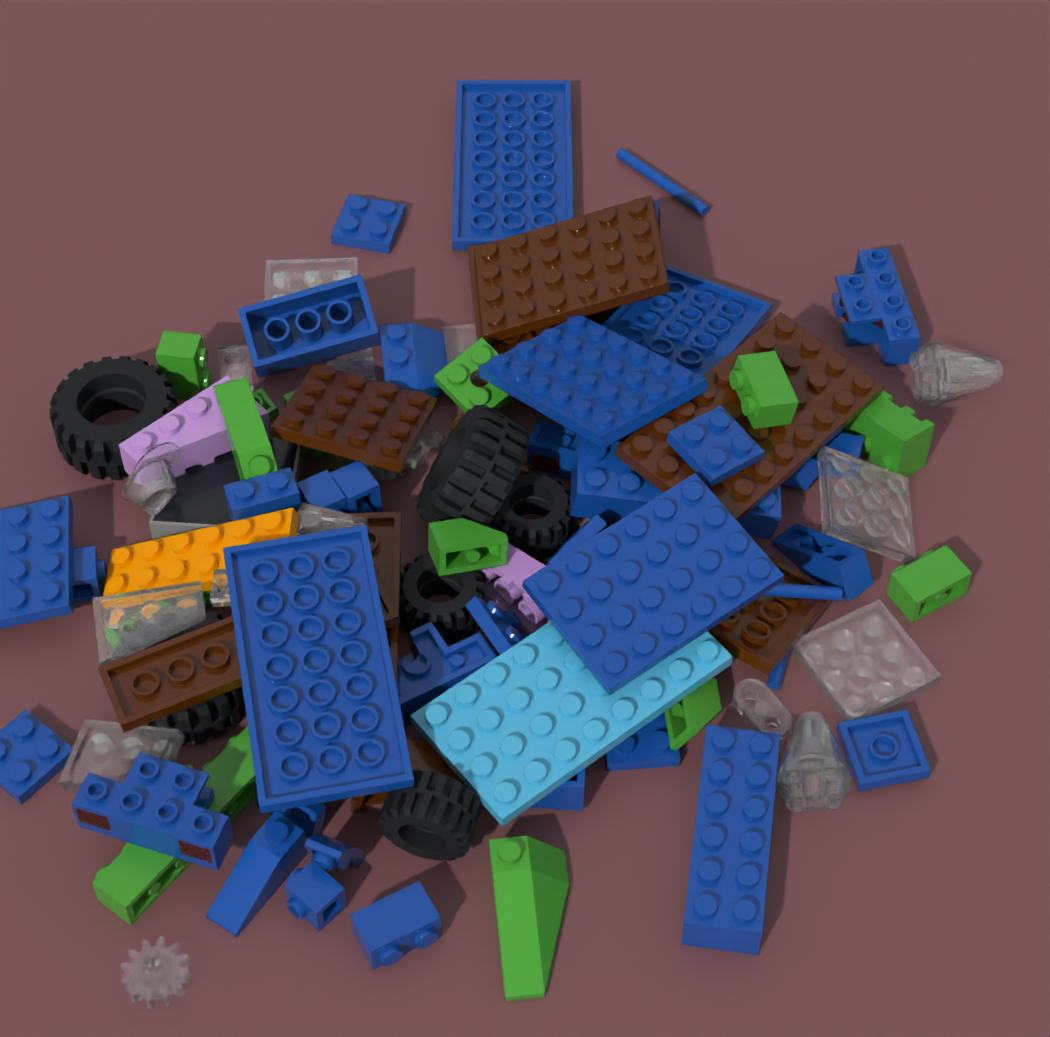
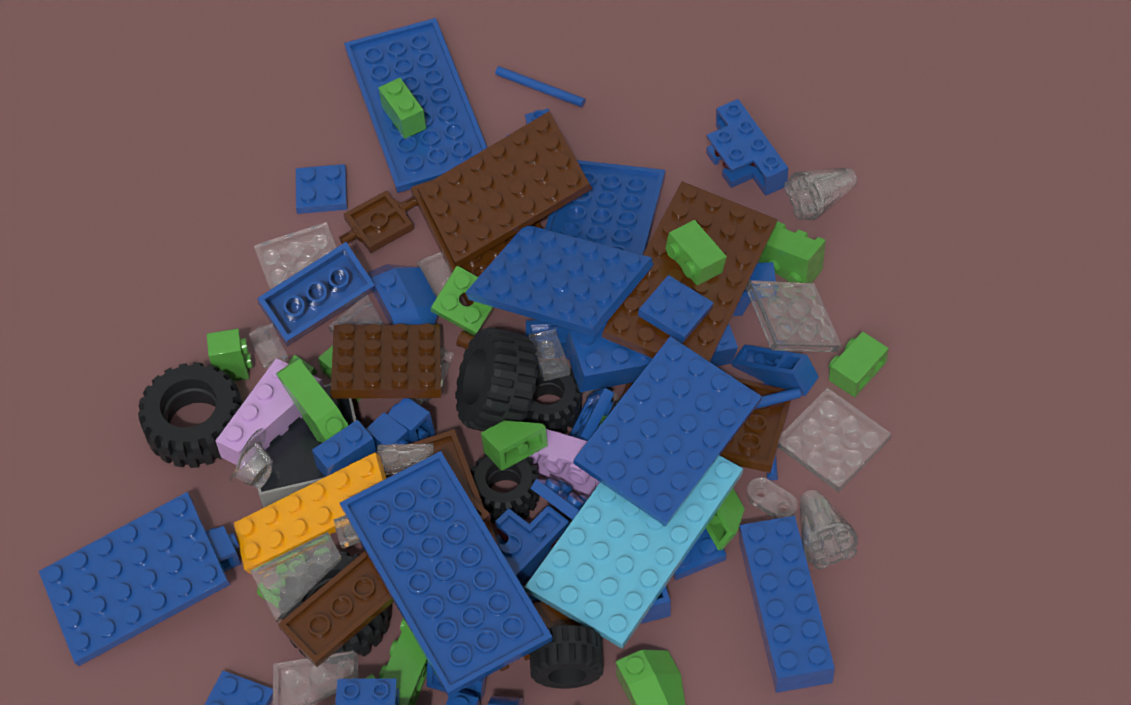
camera: 15 degrees left, 5 degrees up
(417, 273) = (378, 221): none -> reddish brown plate
(491, 159) = (402, 108): none -> bright green brick
(549, 462) = (550, 355): none -> clear plate
(883, 750) = (868, 503): blue plate -> none

